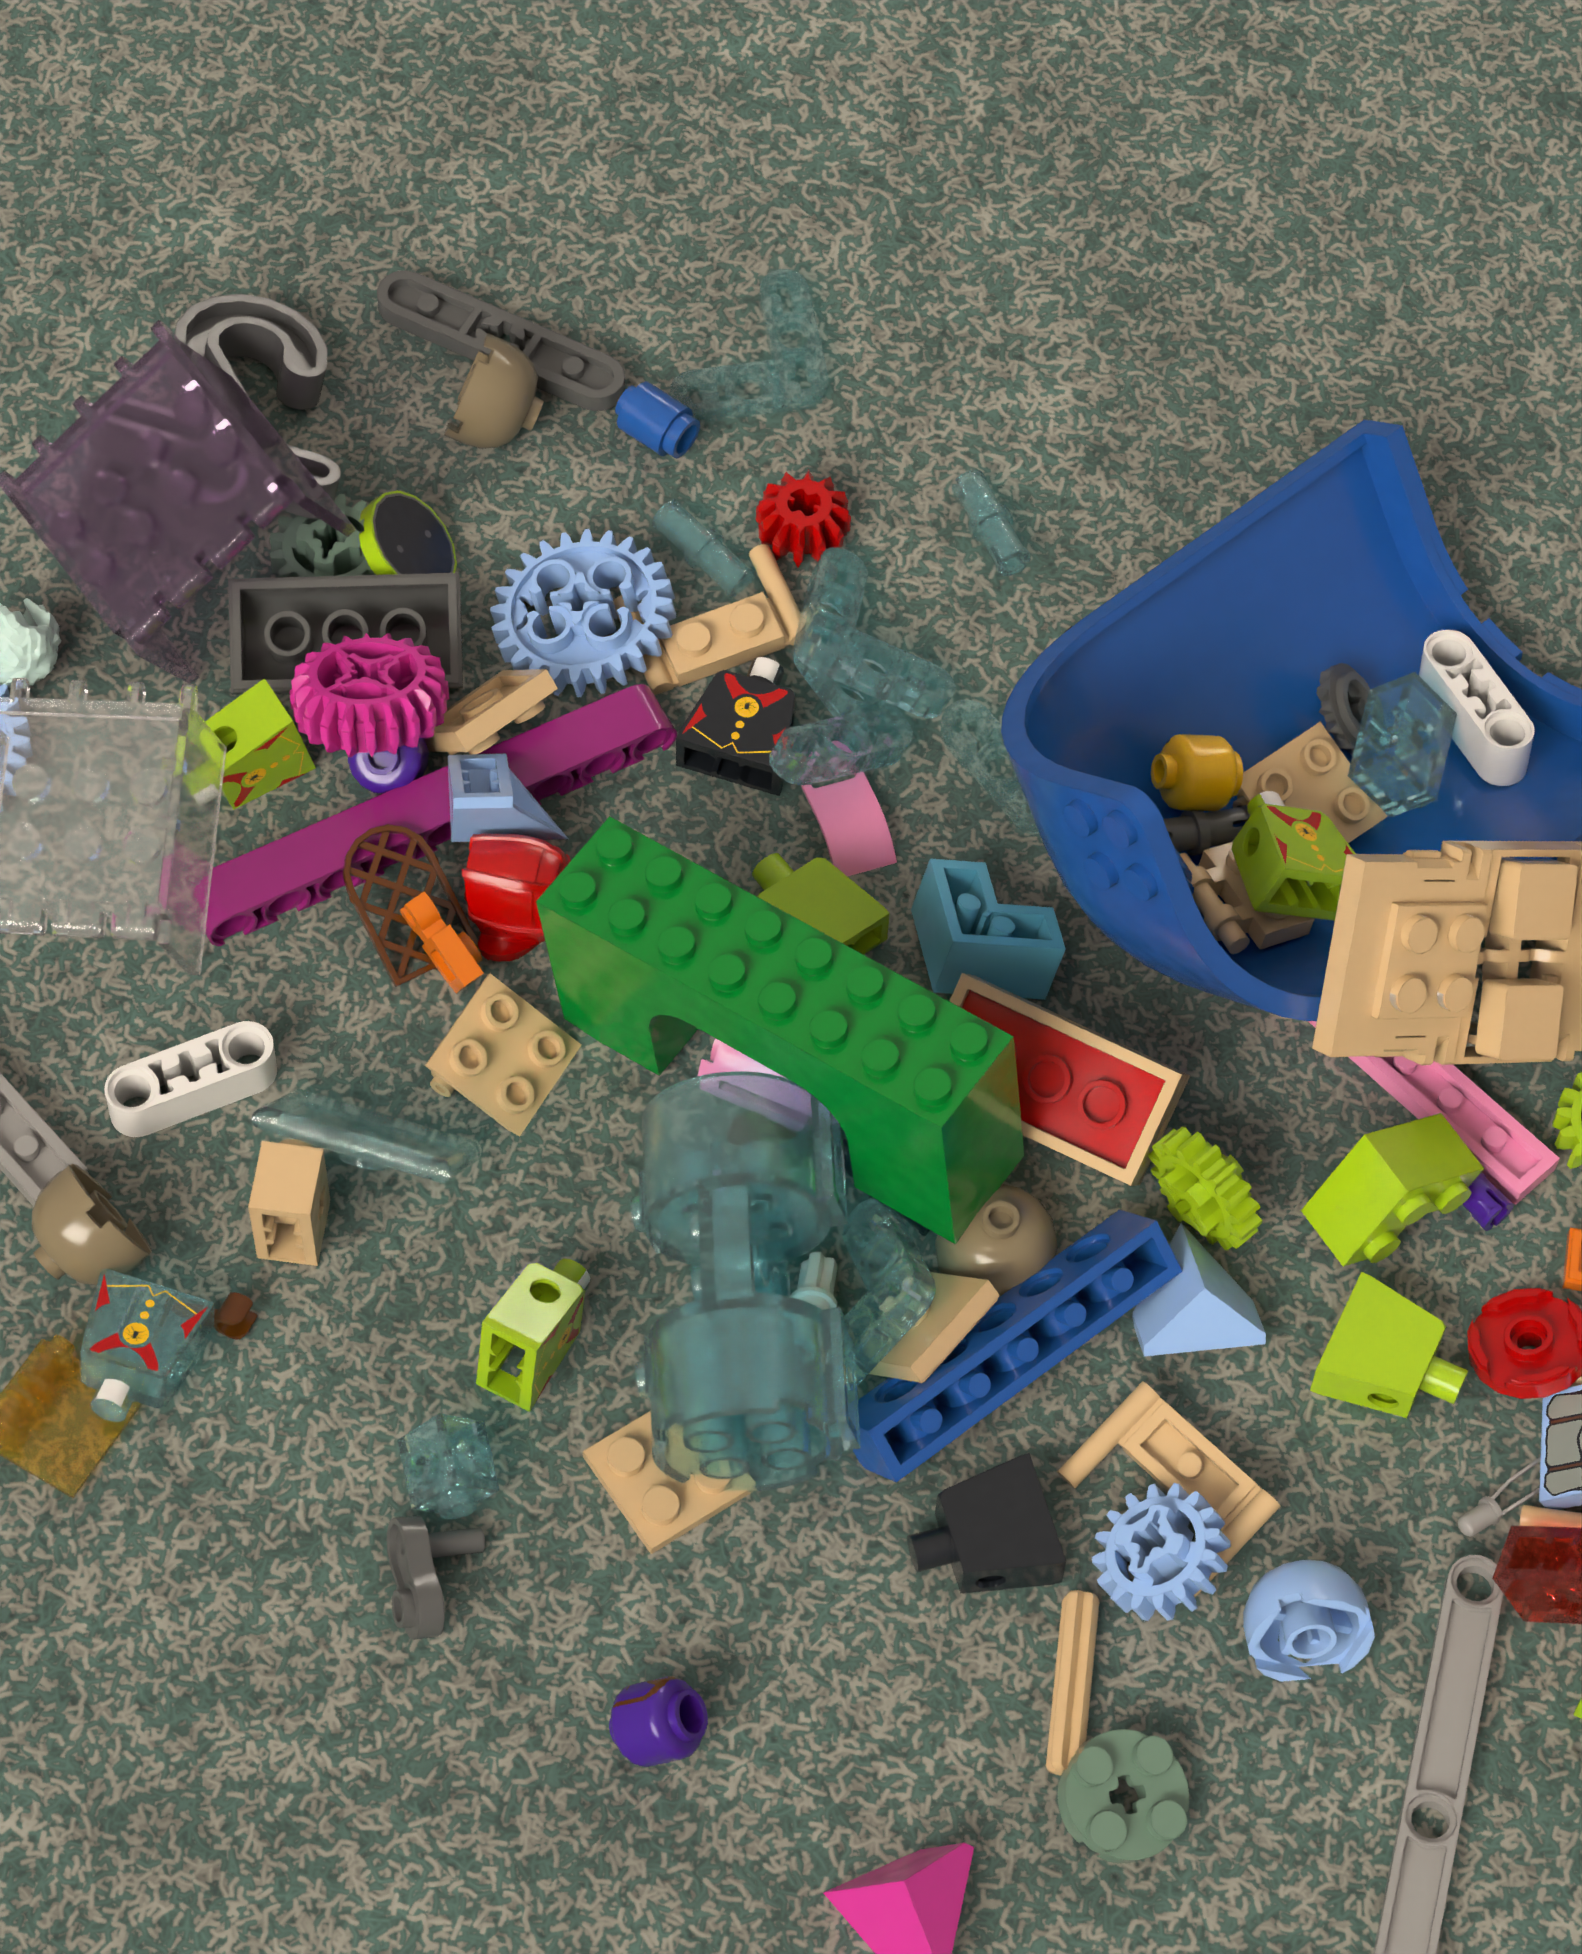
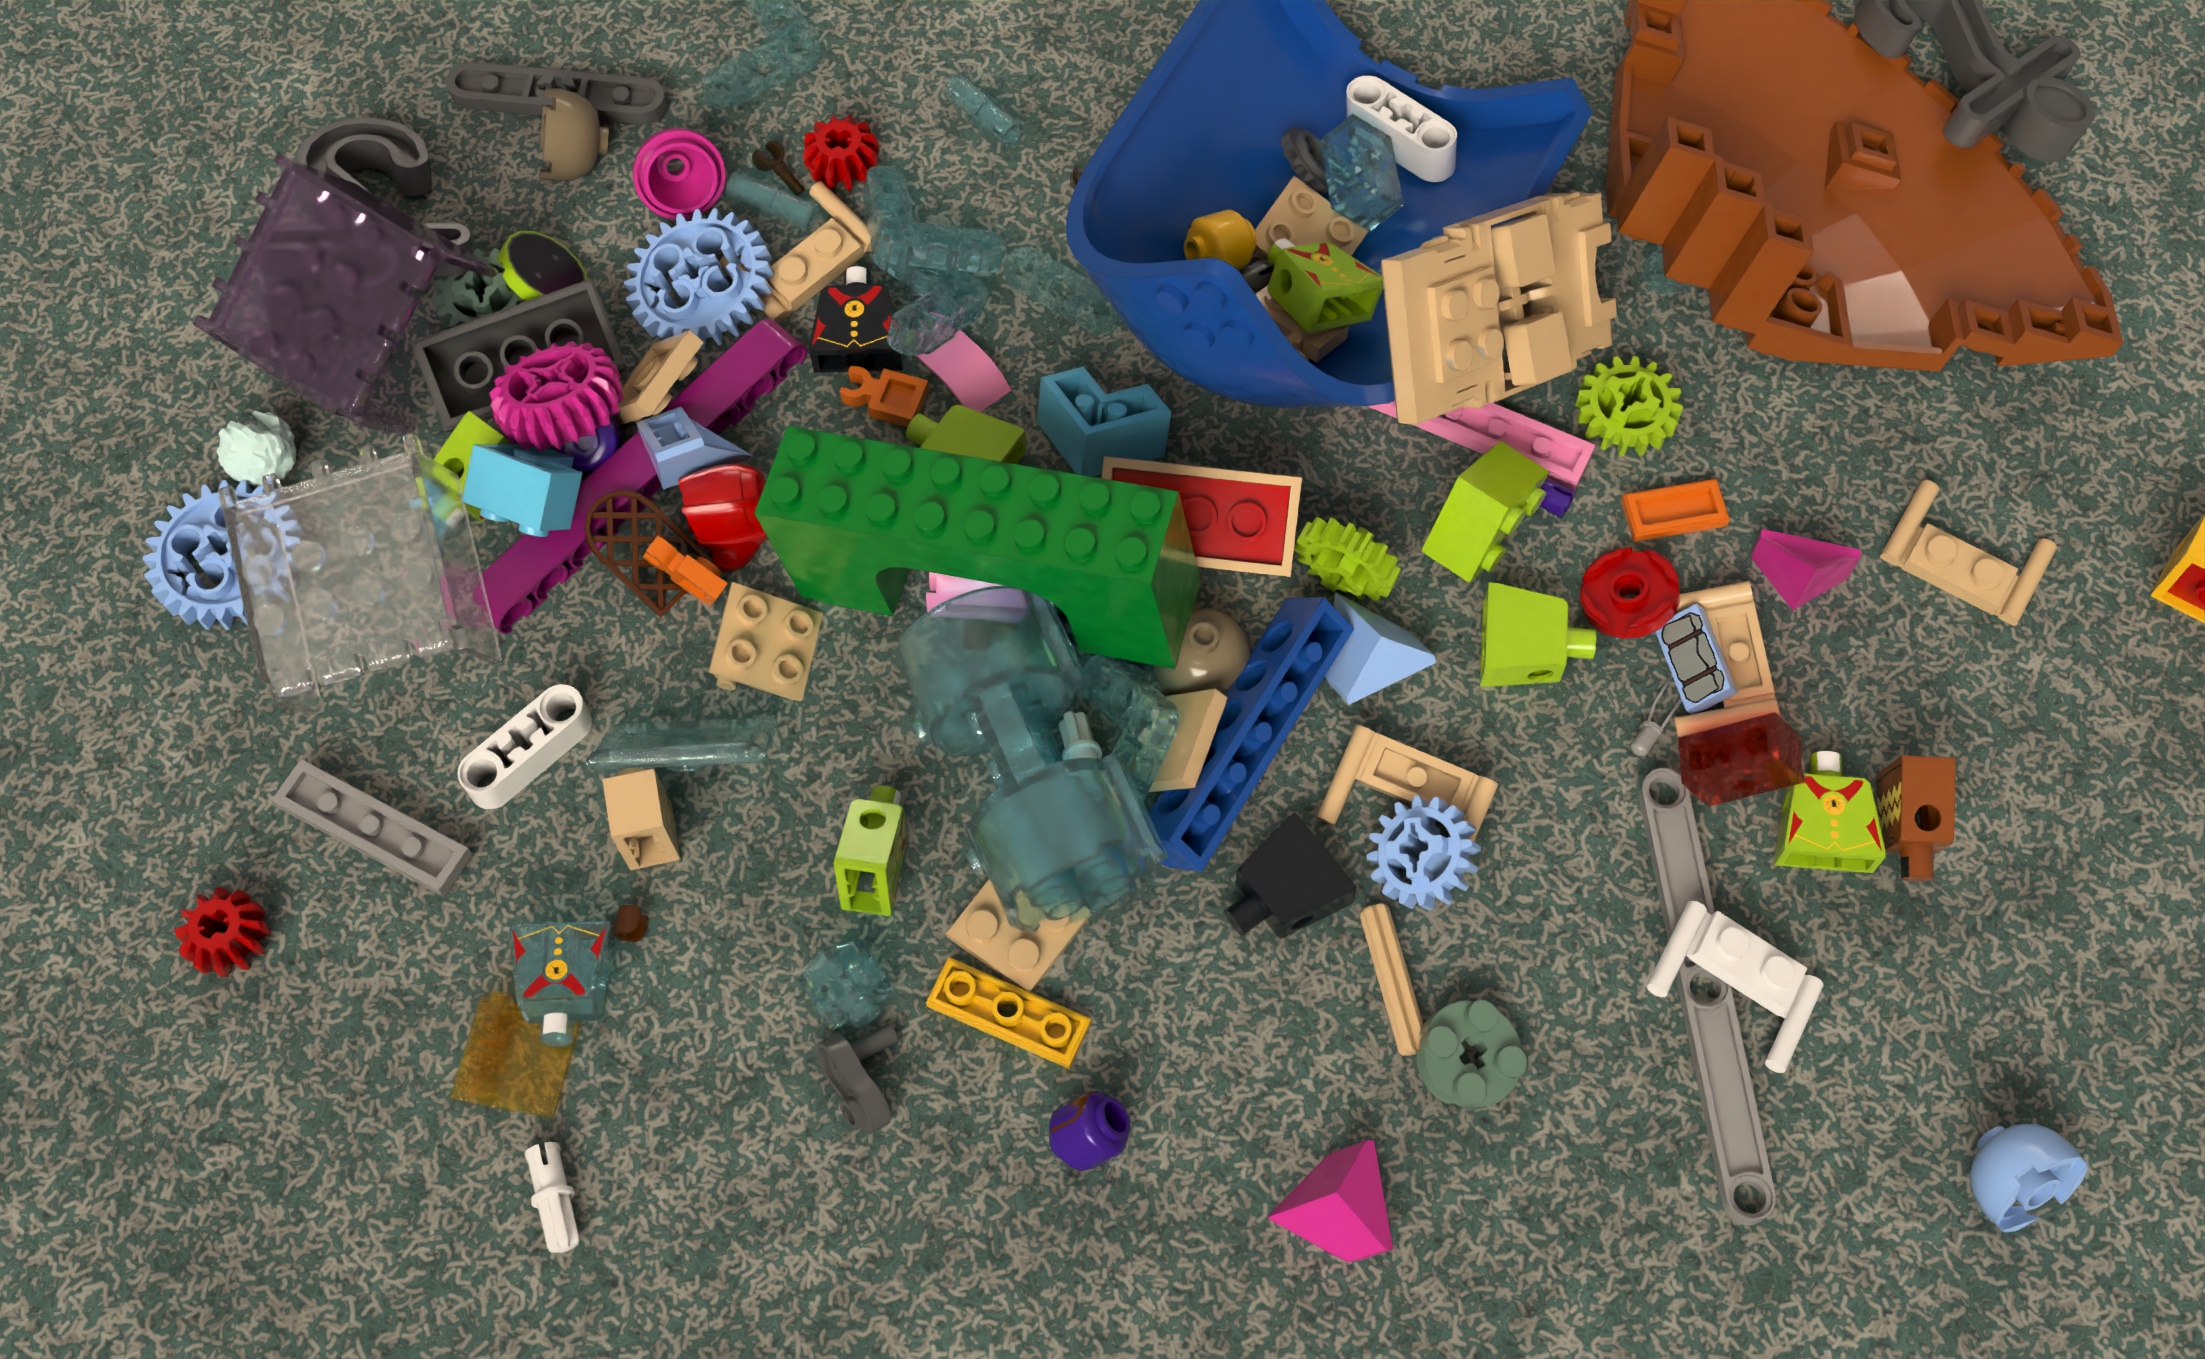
camera: 15 degrees left, 5 degrees up
(41, 1582) = (553, 1198): none -> white axle
(83, 1230) = (483, 899): dark tan cylinder -> none
(294, 785) = (523, 486): none -> medium azure brick
(600, 502) = (680, 191): none -> dark pink piece
(644, 1588) = (1036, 1027): none -> yellow tile
(656, 420) = (701, 113): blue brick -> none
(724, 510) = (777, 166): none -> dark brown hand
(750, 824) = (890, 398): none -> orange plate
(1313, 1612) = (1556, 859): light blue cylinder -> none
(1486, 1811) = (1747, 966): none -> white plate

